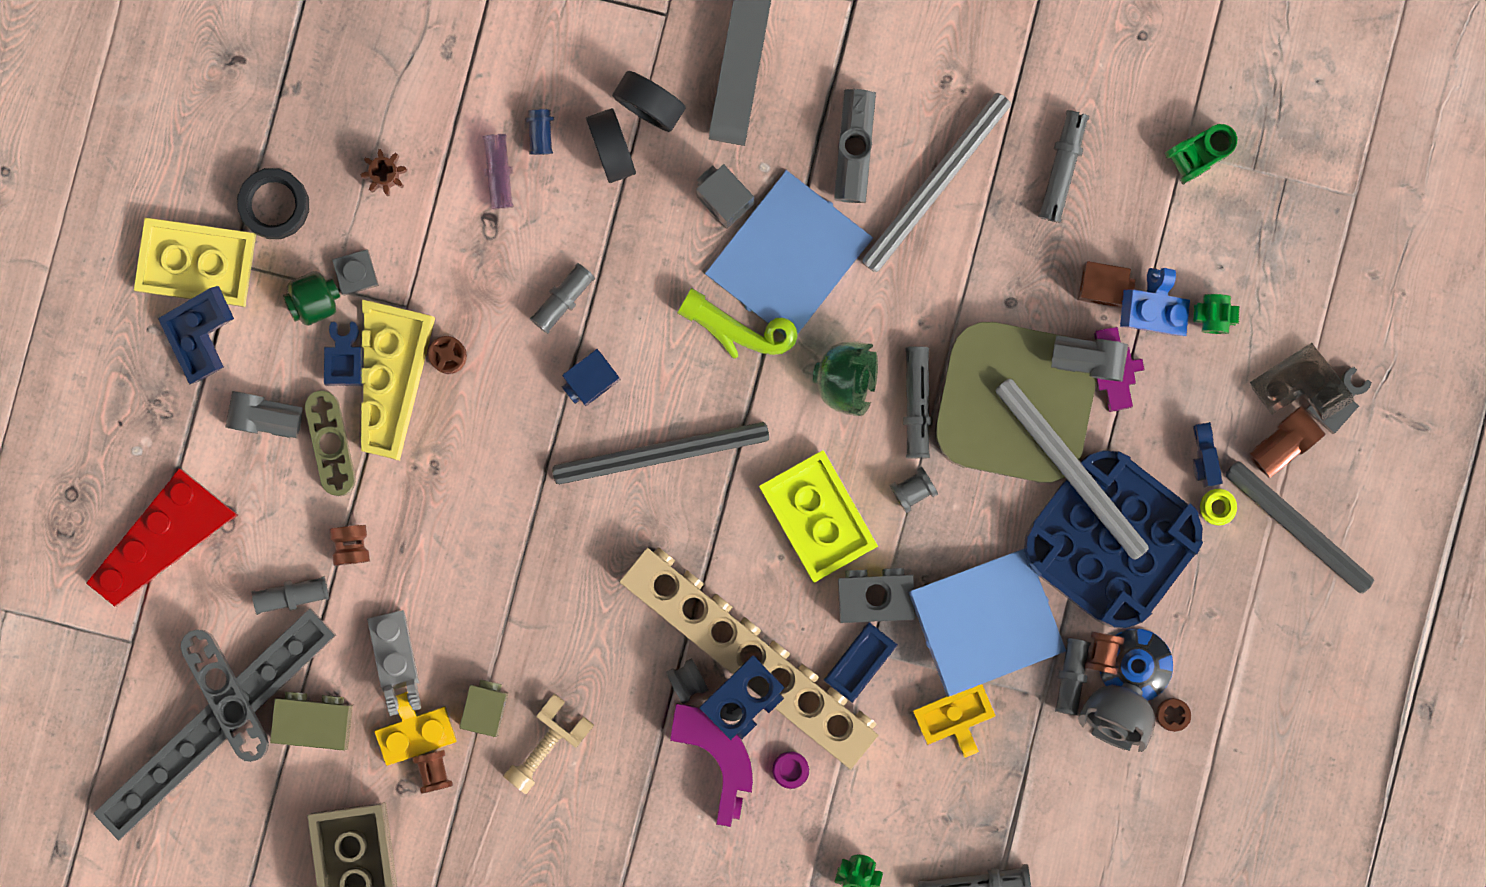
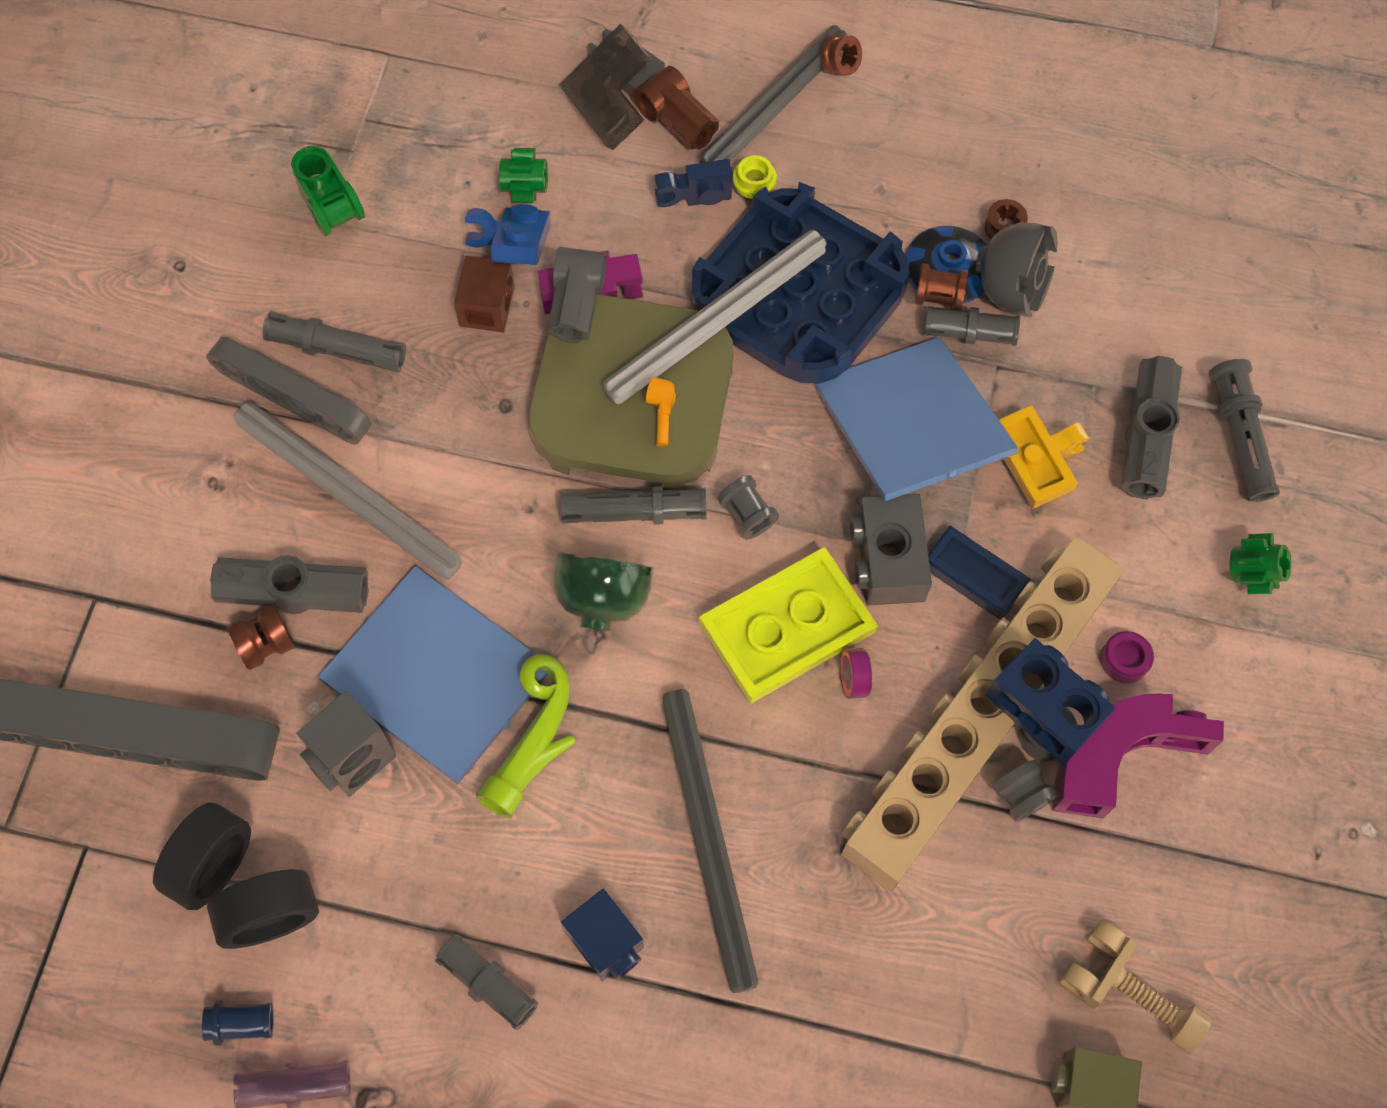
camera: 90 degrees left, 20 degrees down
(778, 564) = (855, 673): none -> magenta tile
(809, 120) = (250, 642): none -> copper wheel
(1001, 424) = (661, 394): none -> light orange hand
(1001, 815) = (1147, 449): none -> dark grey piece
(1019, 133) = (289, 390): none -> dark grey beam
(1340, 585) = (831, 54): none -> copper bush

